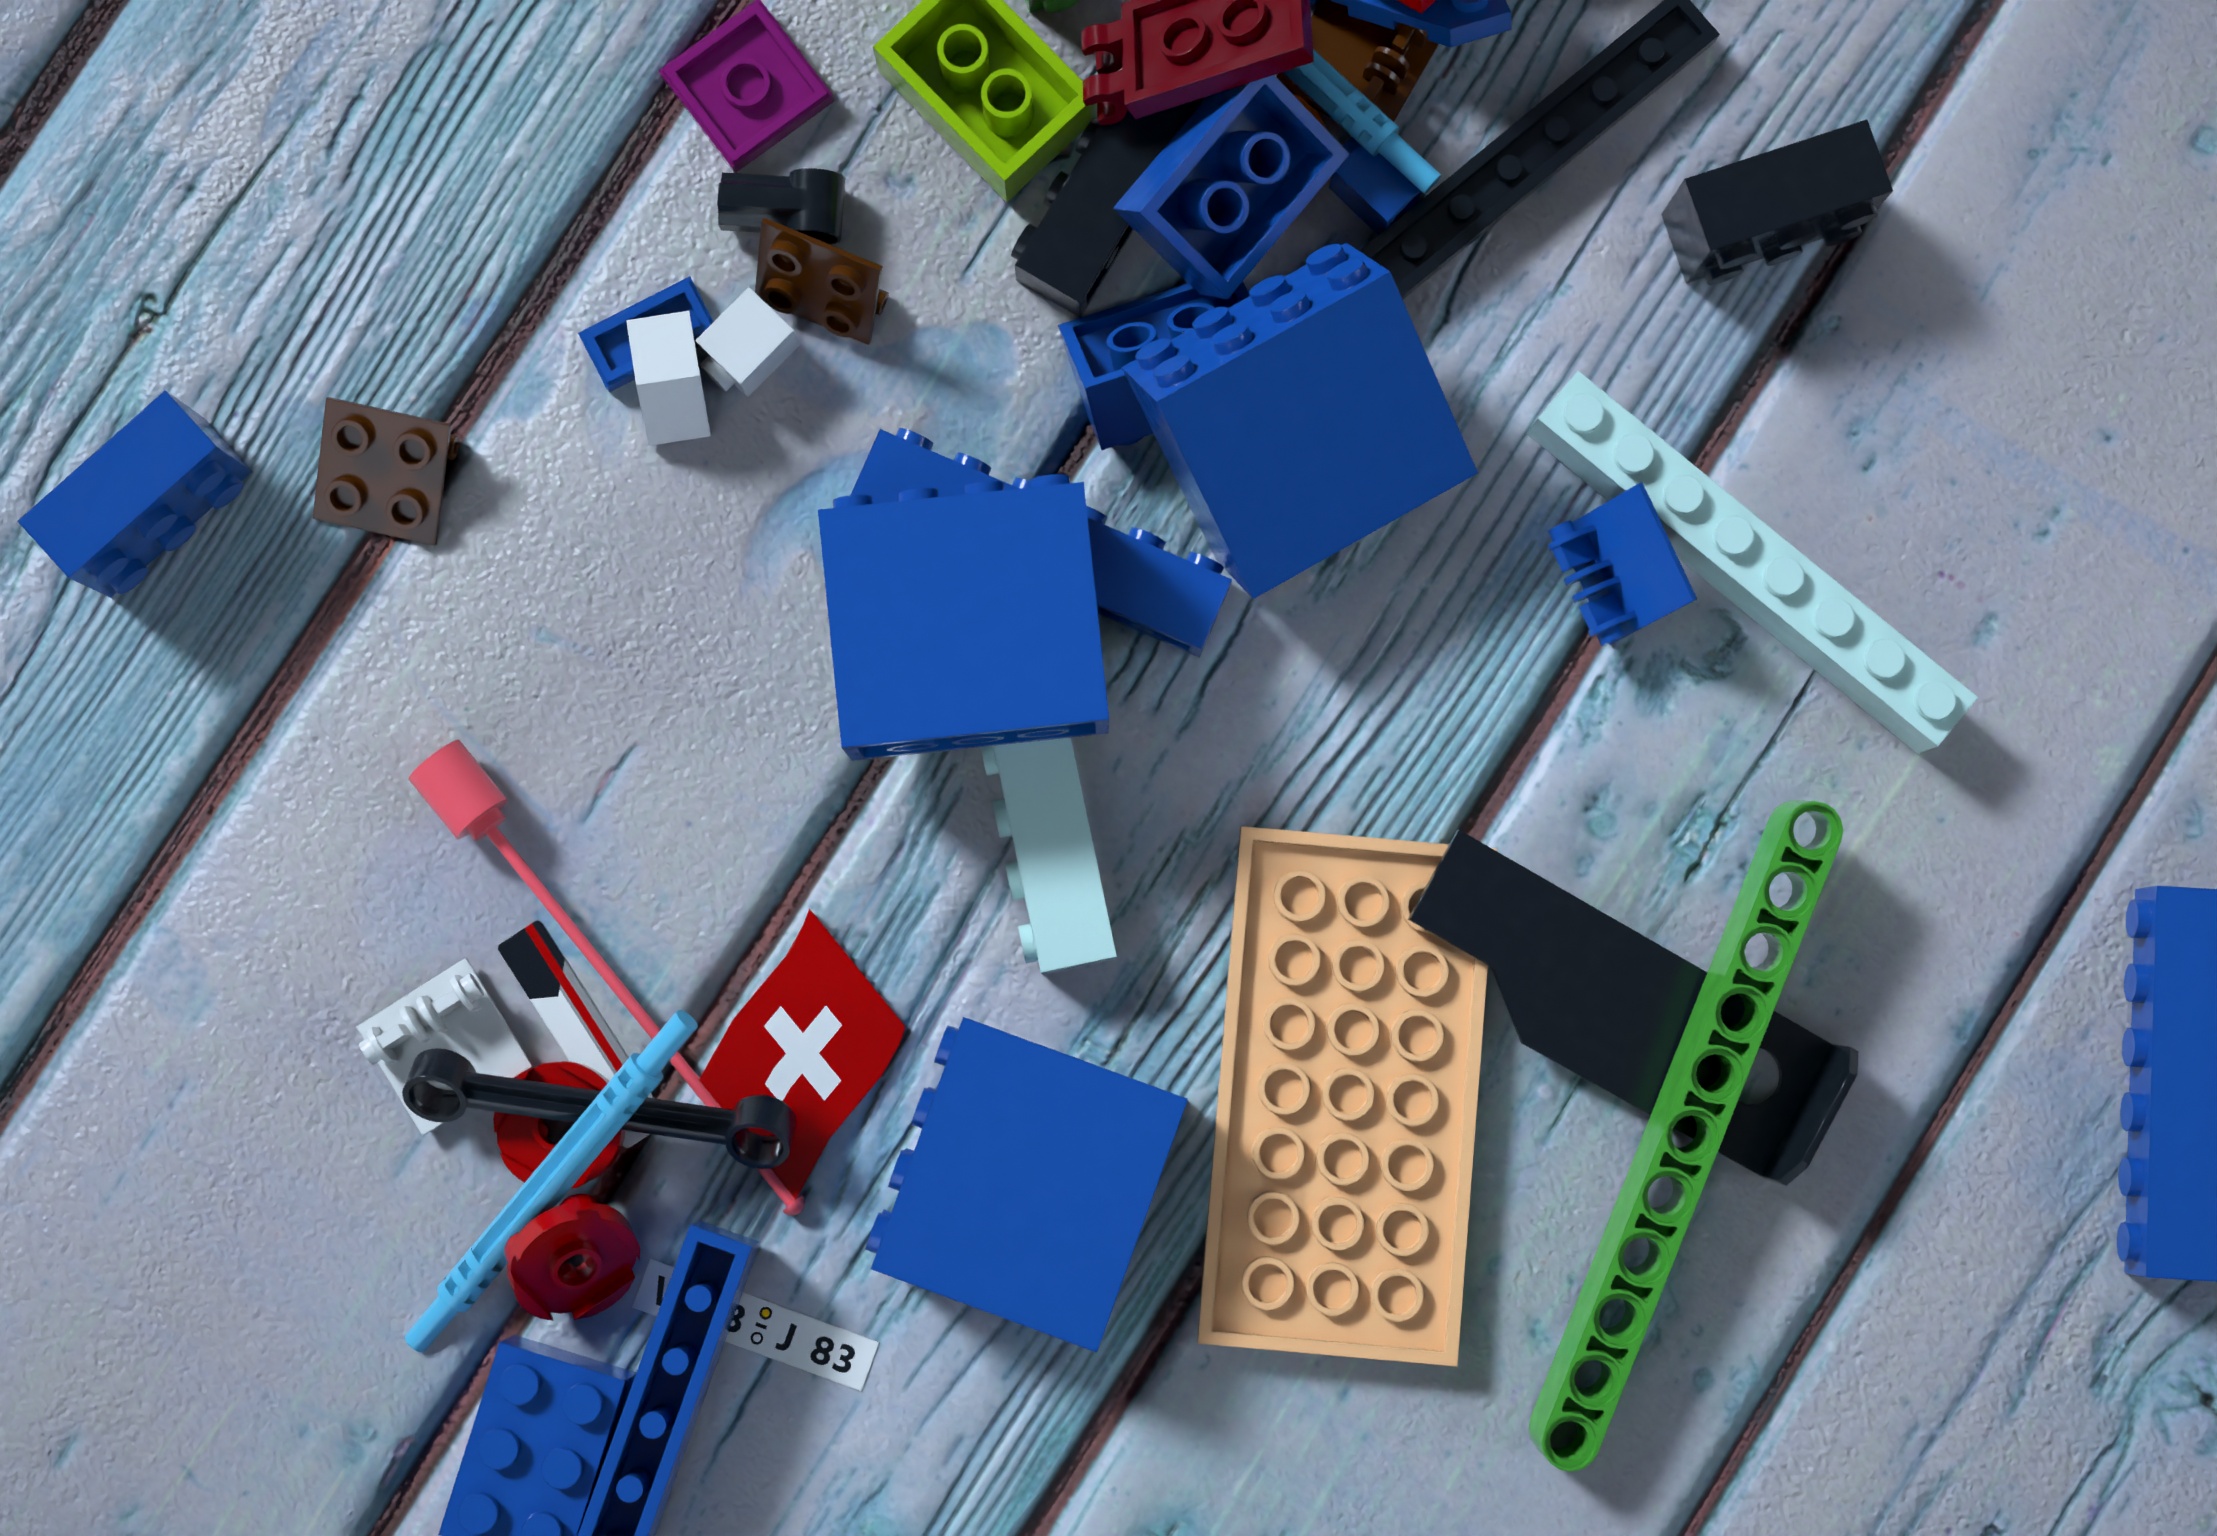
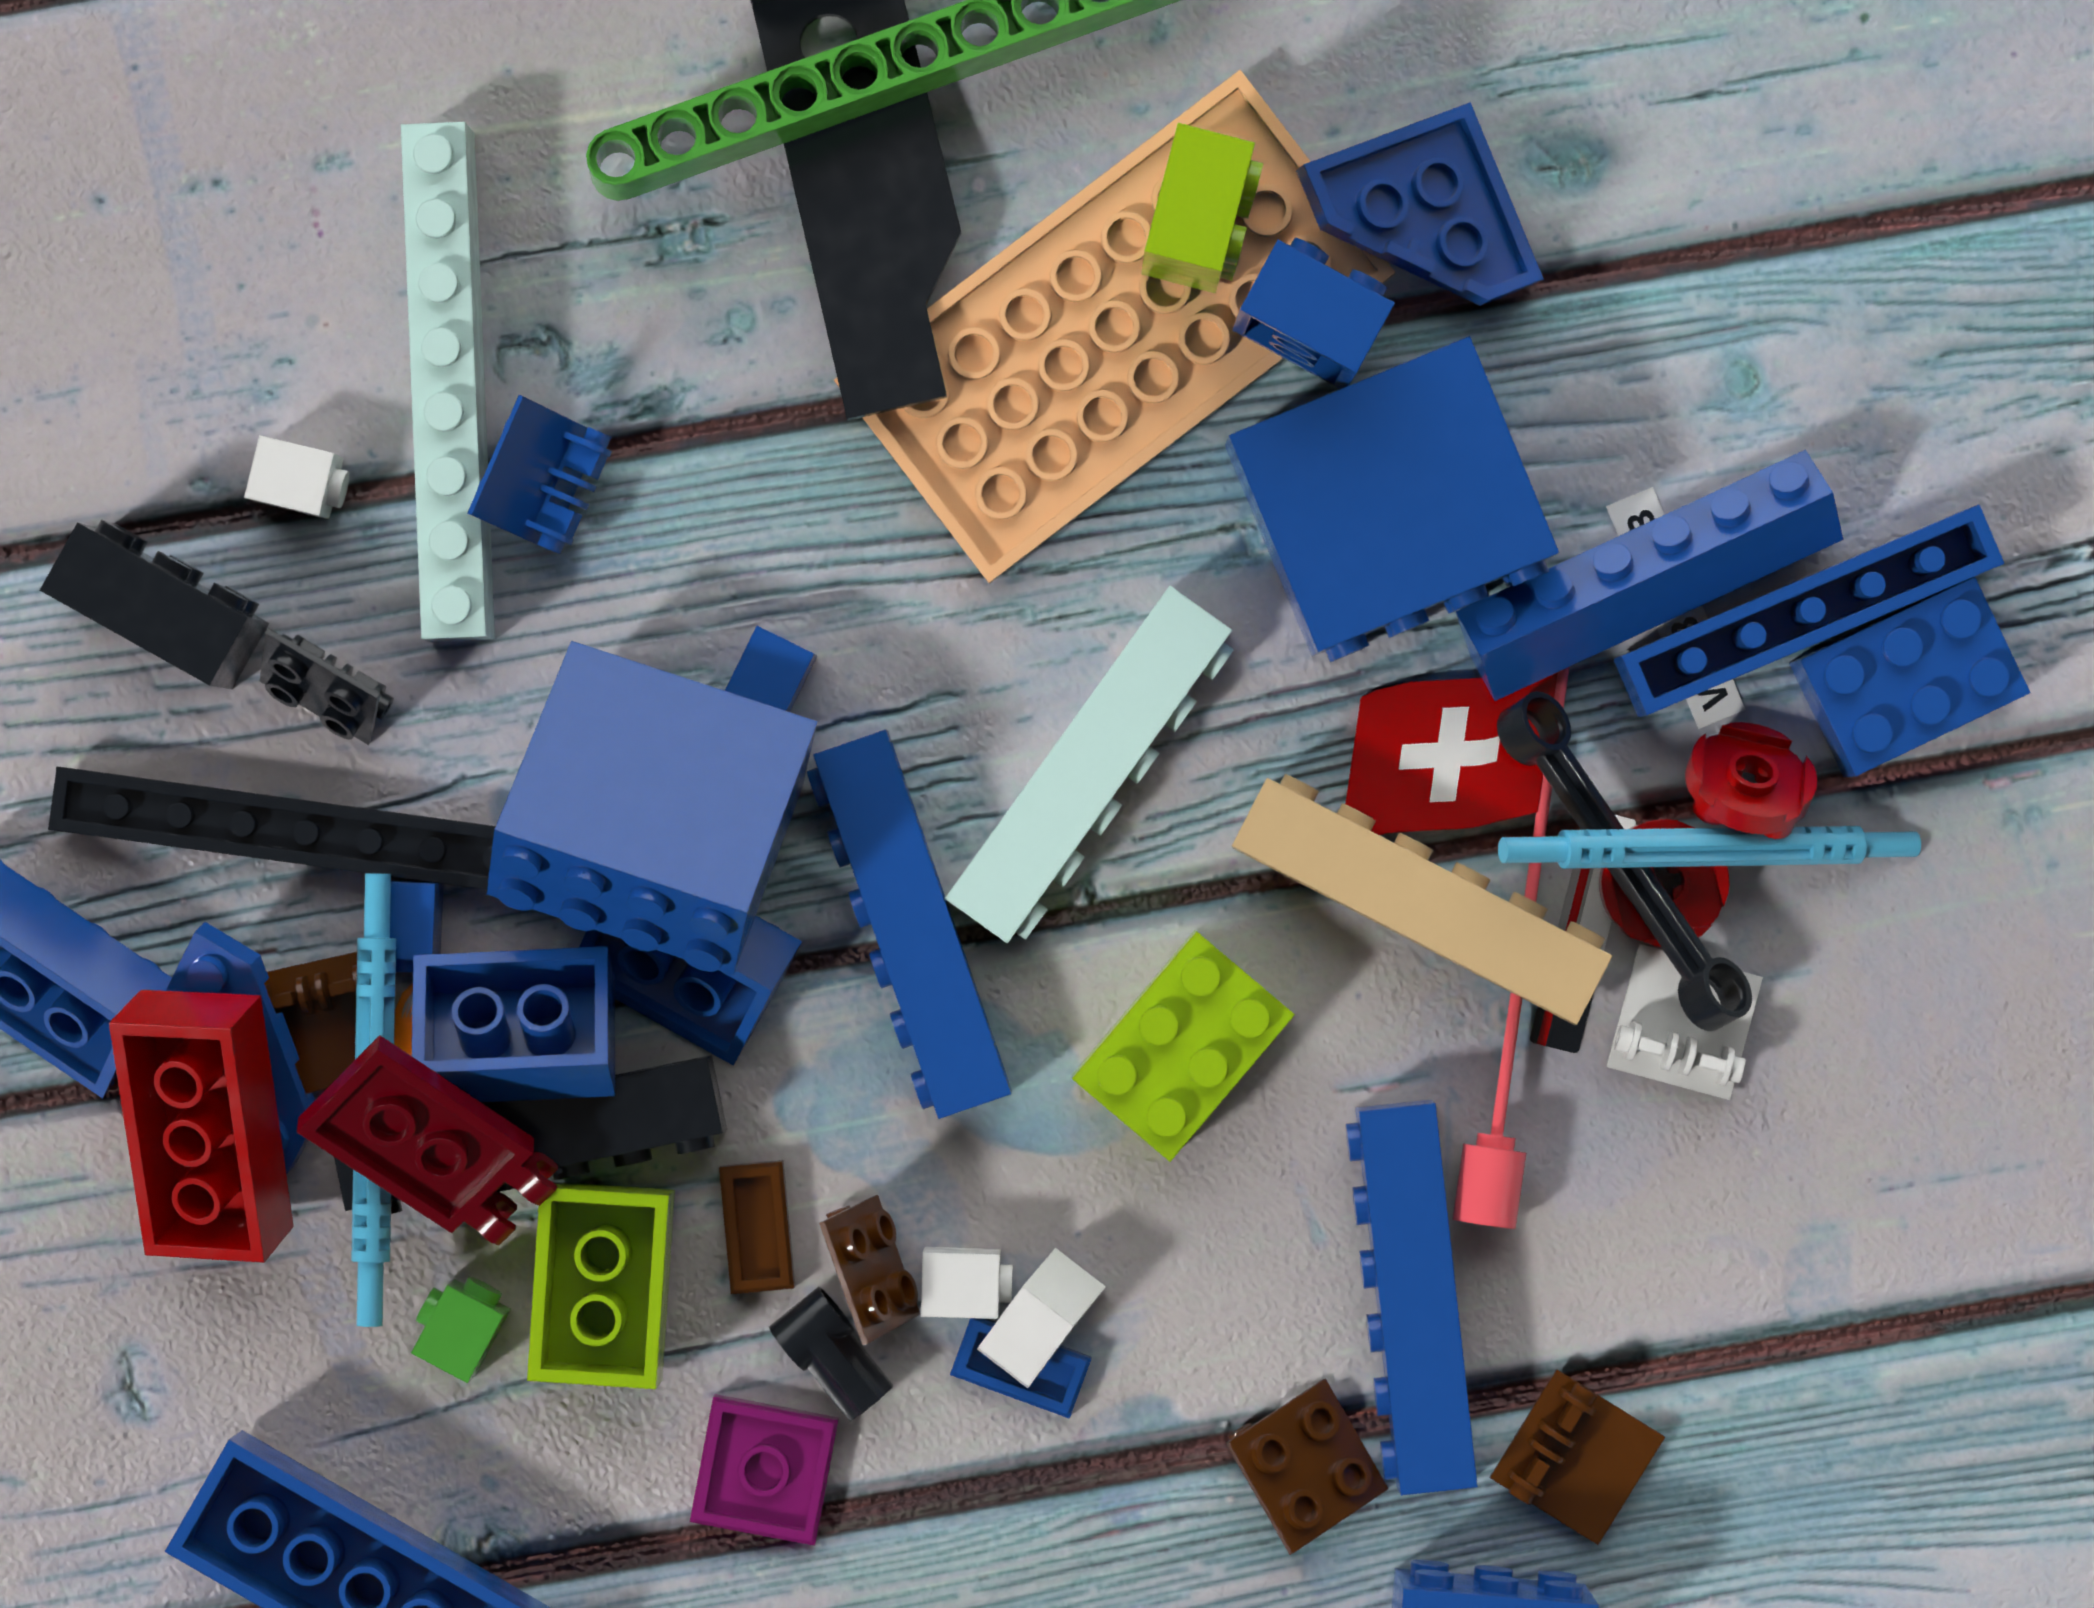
camera: 130 degrees left, 5 degrees up
(204, 674) = (1577, 1457): none -> reddish brown hinge
(429, 661) = (1414, 1297): none -> blue brick
(709, 930) = (1422, 900): none -> tan brick
(767, 657) = (1182, 1045): none -> lime brick
(793, 1329) = (1651, 575): none -> blue brick
(925, 236) = (757, 1227): none -> reddish brown tile
(963, 618) = (1026, 917): blue brick -> none
(1223, 1249) = (1313, 312): none -> blue brick
(1225, 1414) = (1427, 205): none -> blue plate
(1320, 606) = (771, 670): none -> blue brick
(1383, 1233) = (1201, 194): none -> lime brick
(1630, 259) = (299, 676): none -> black hinge
(1777, 392) = (297, 478): none -> white brick

